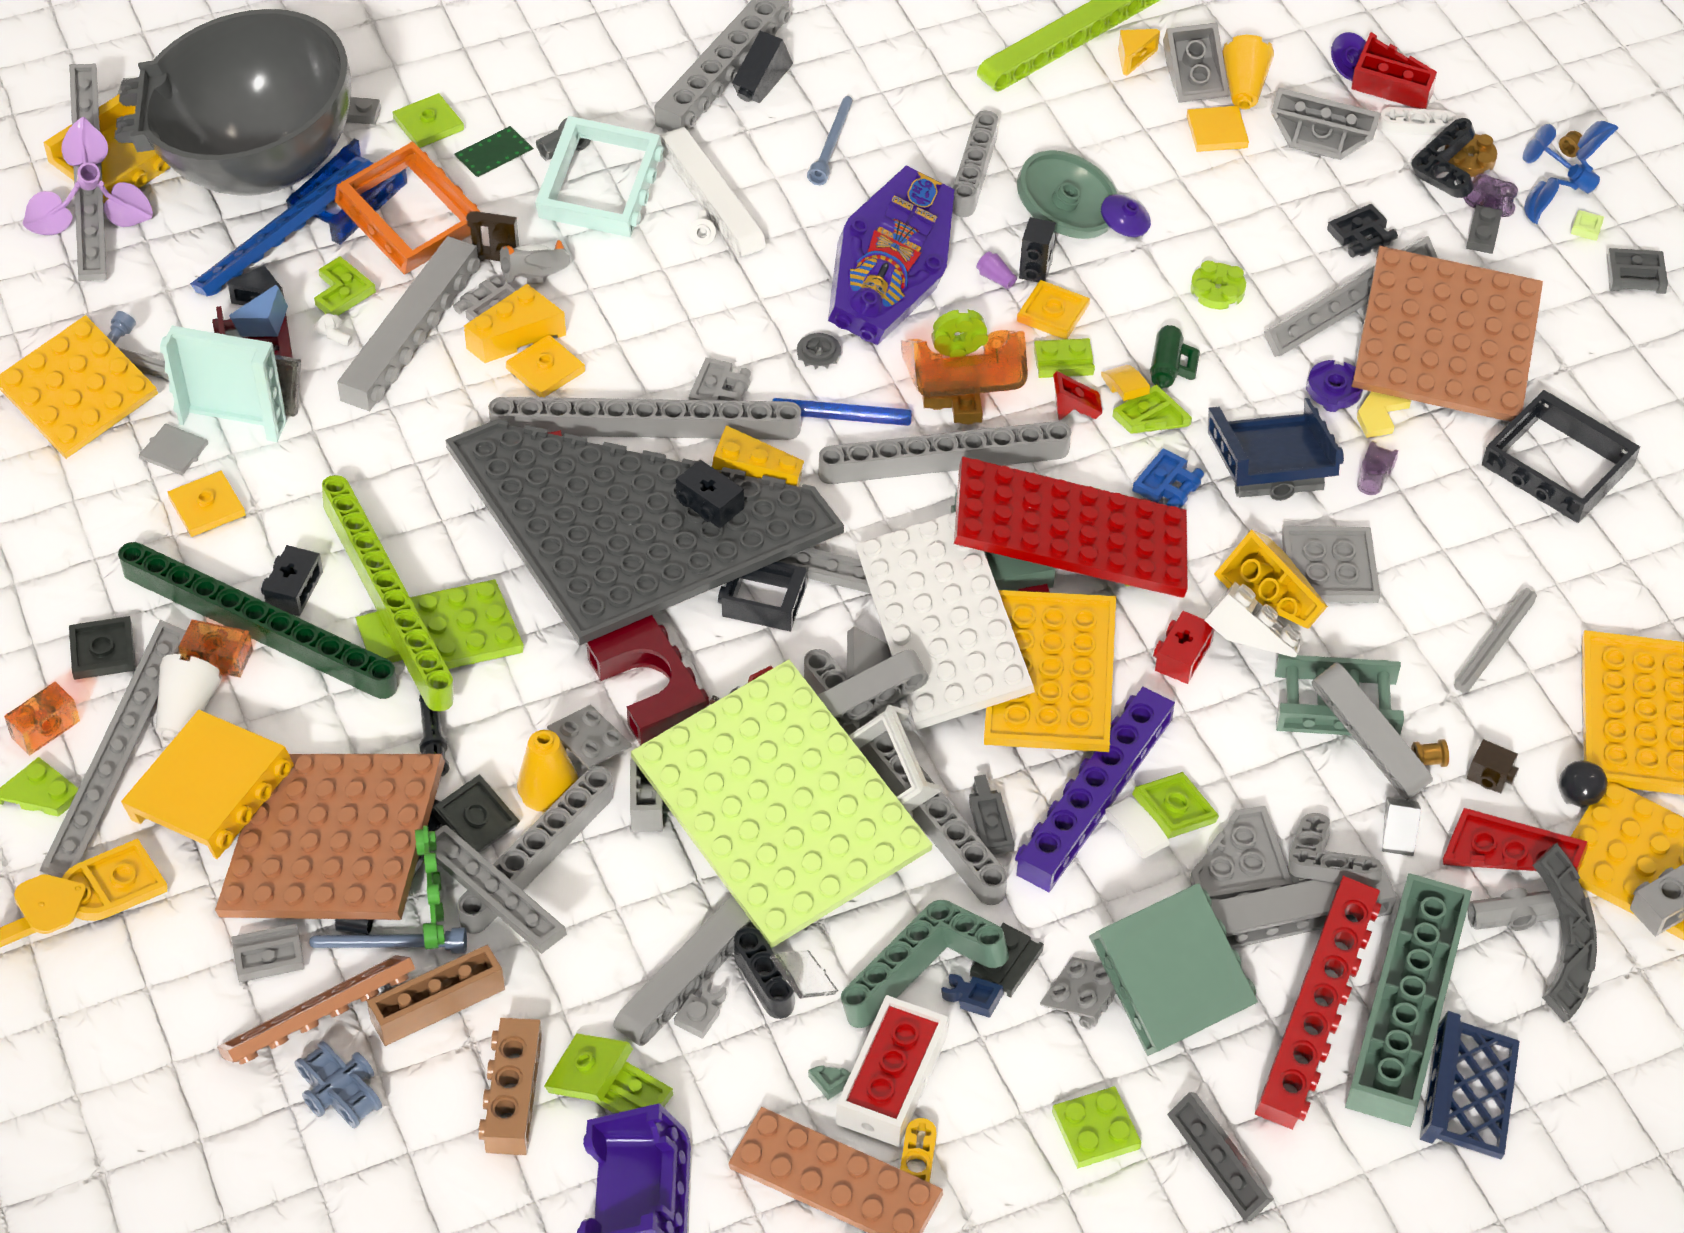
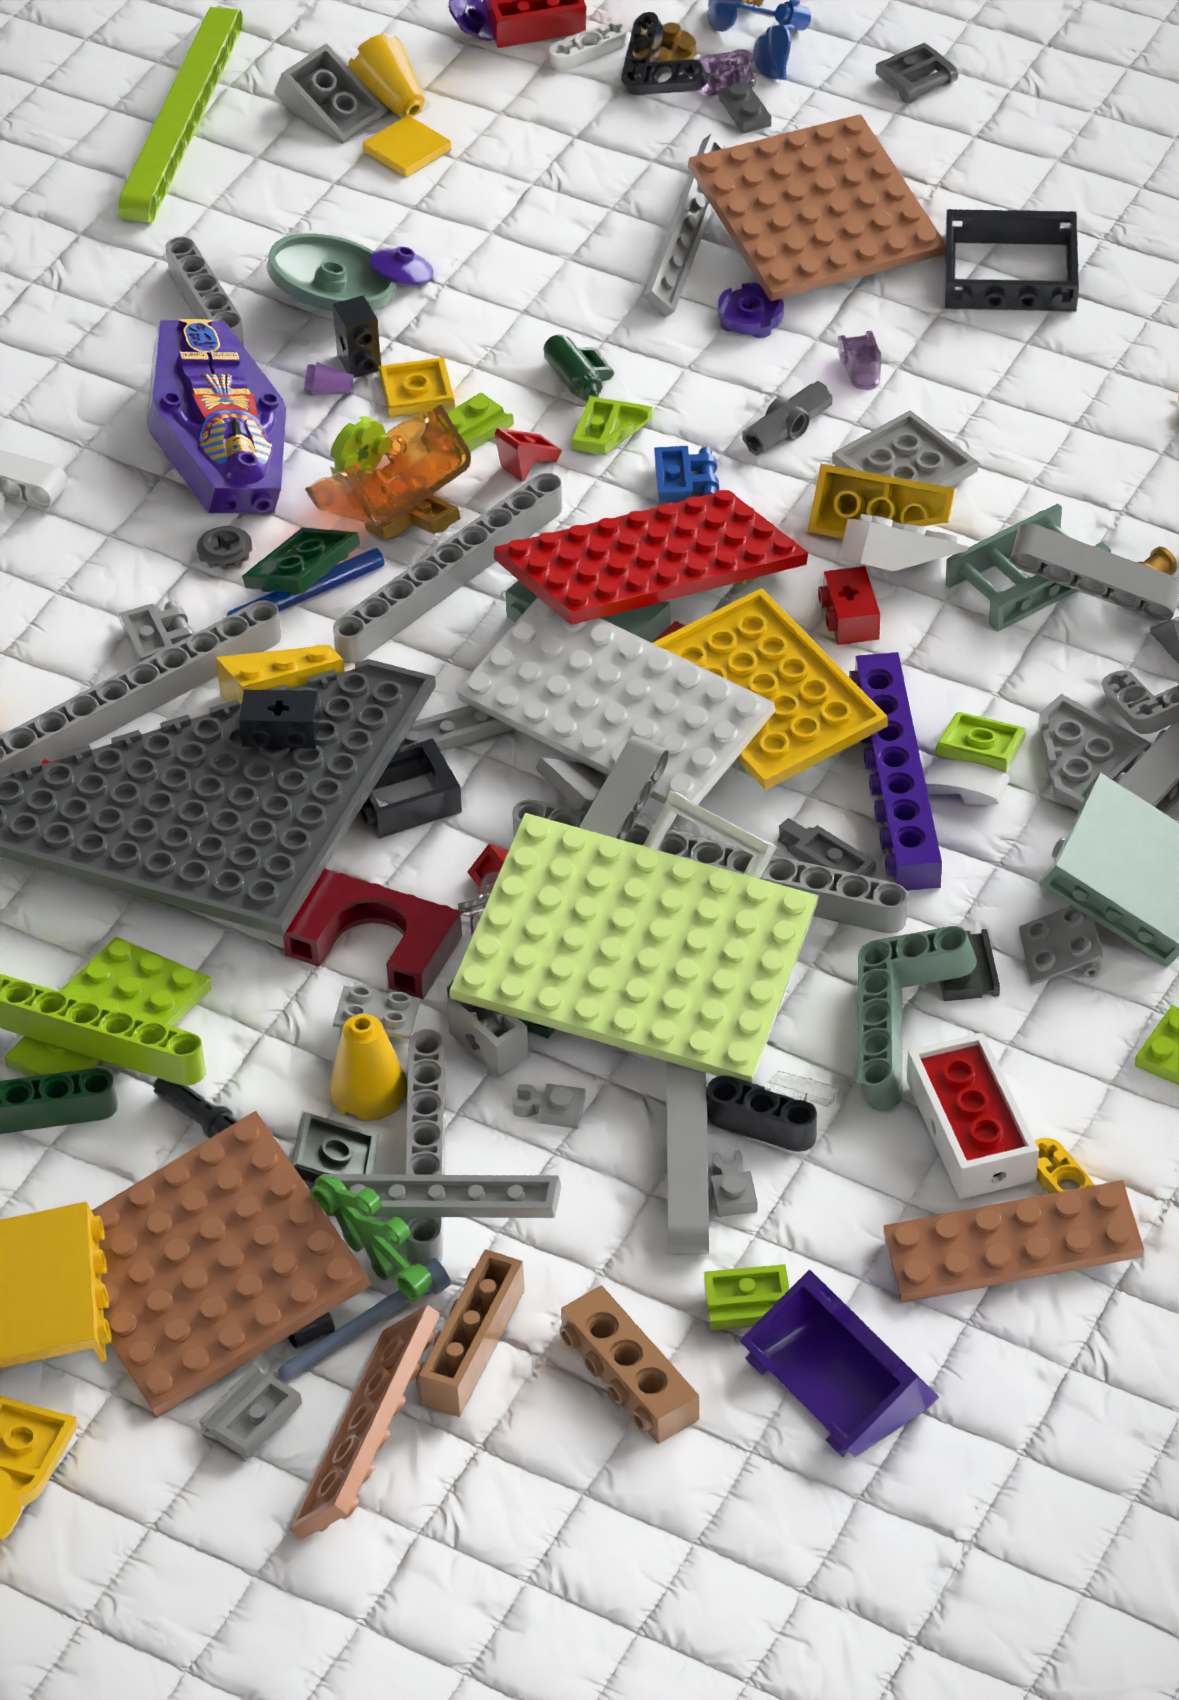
camera: 35 degrees left, 5 degrees down
(338, 1084) = (454, 1477): sand blue axle -> none
(588, 1067) = (686, 1299): lime plate -> none
(646, 876) = (556, 1105): none -> light grey plate
(819, 171) = (49, 384): sand blue piece -> none
(829, 1080) = (914, 1167): sand green tile -> none
(850, 390) = (301, 560): none -> dark green plate
(976, 997) = (973, 1008): dark blue plate -> none
(1126, 381) = (560, 406): yellow slope -> none
(1136, 47) = (252, 112): yellow slope -> none
(1229, 277) = (537, 279): lime plate -> none
(1275, 447) = (762, 384): dark blue panel -> none
(1322, 124) = (512, 88): light grey wedge -> none
(1358, 224) = (629, 164): black plate -> none
(1374, 414) = (809, 314): light yellow tile -> none
(1495, 640) = (1110, 445): light grey axle -> none
(1587, 225) = (832, 56): yellowish green tile -> none

